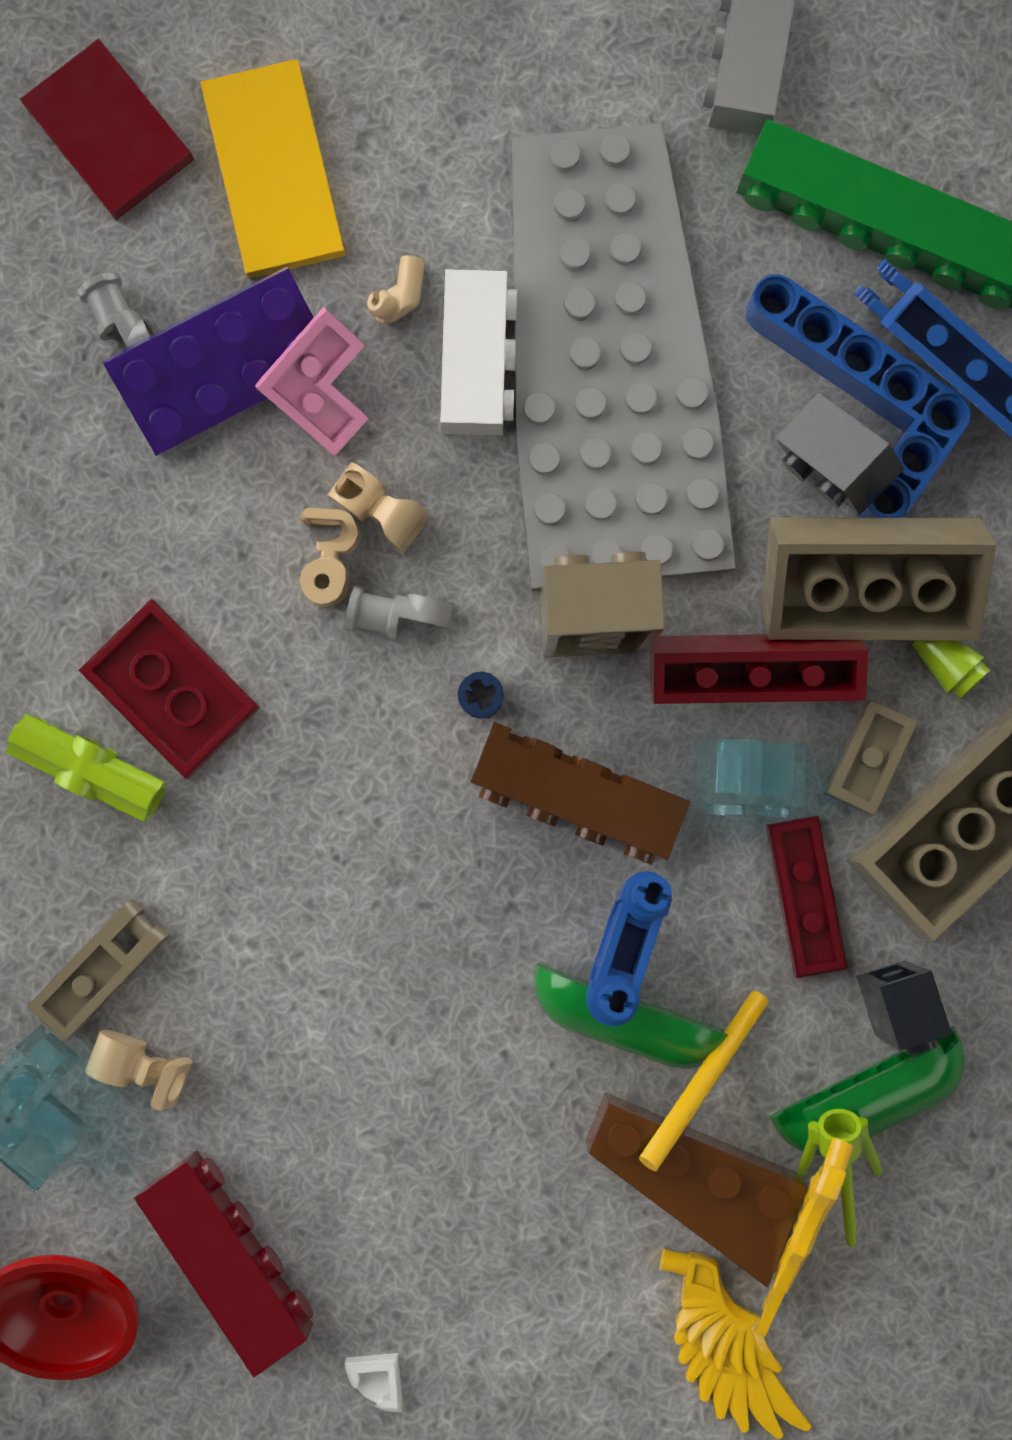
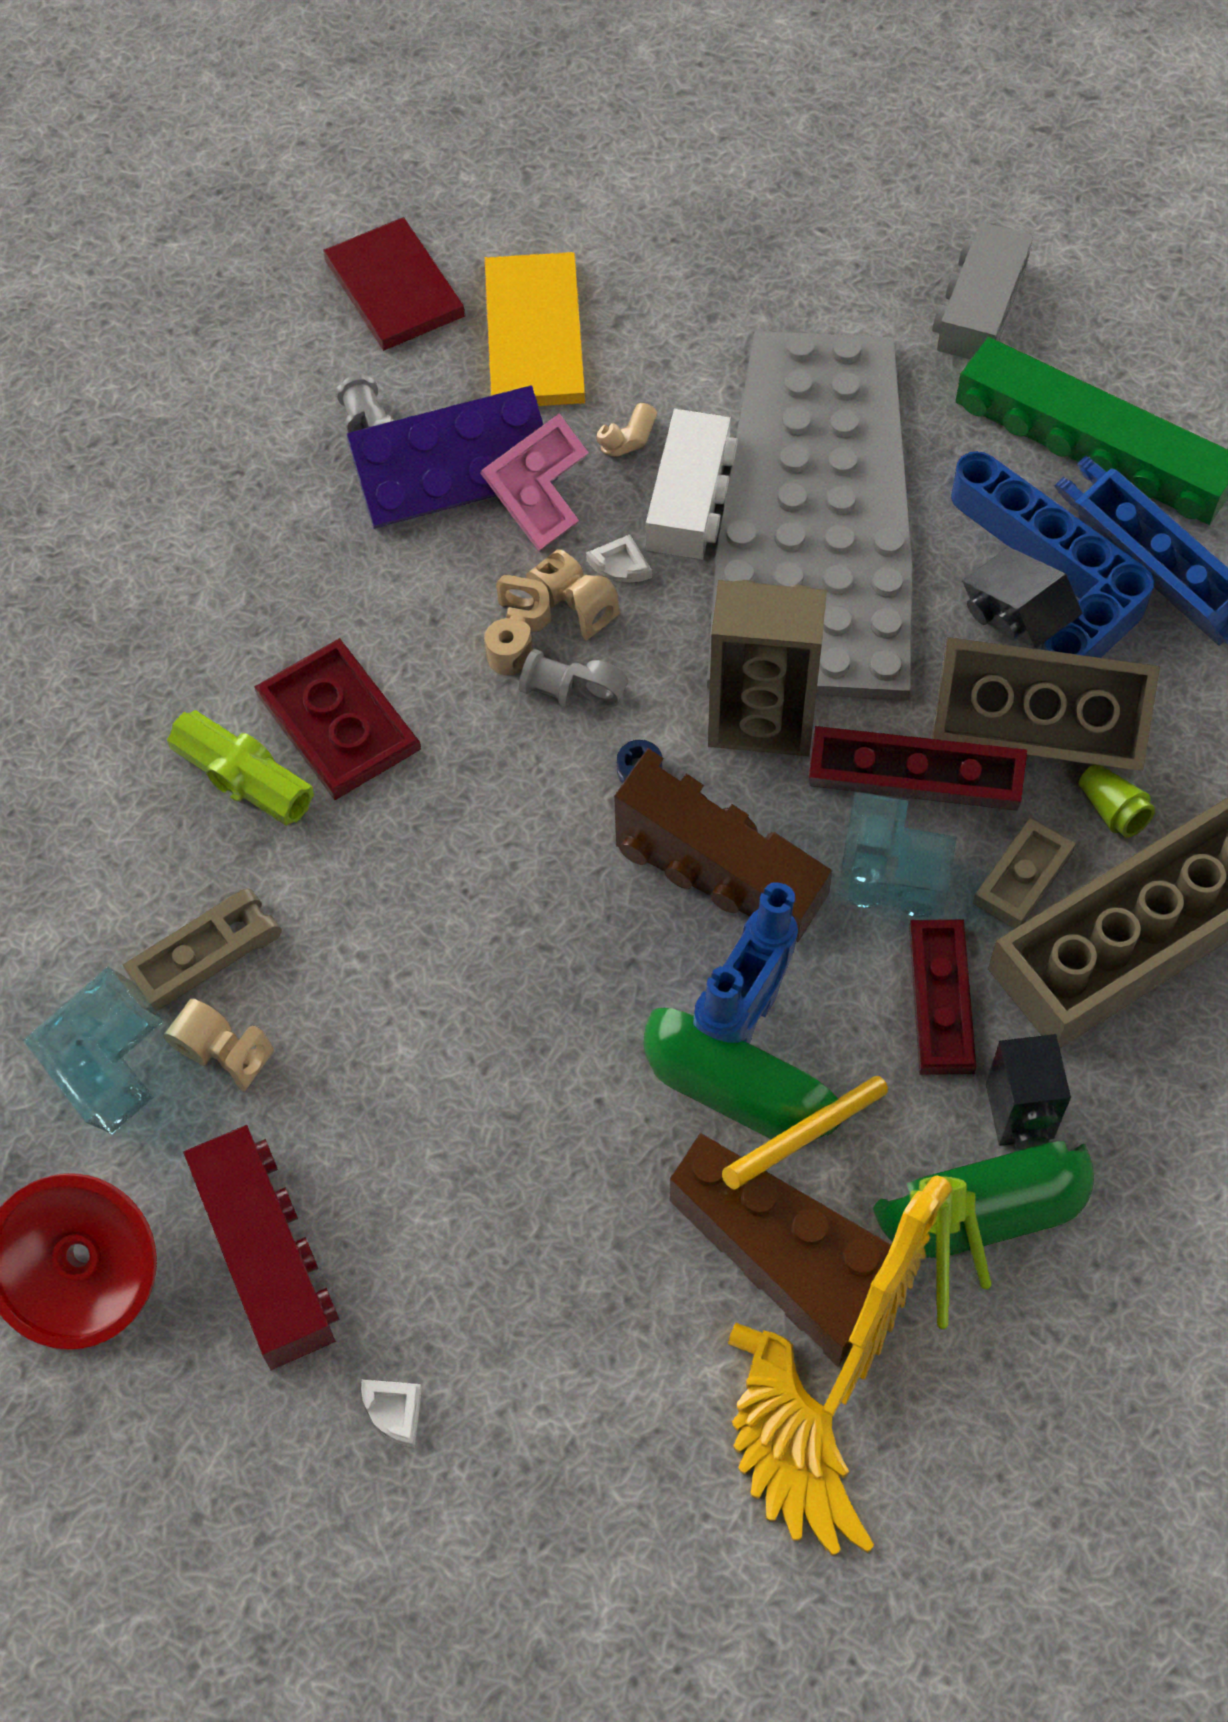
camera: 10 degrees right, 25 degrees down
(419, 454) = (620, 559): none -> white tile

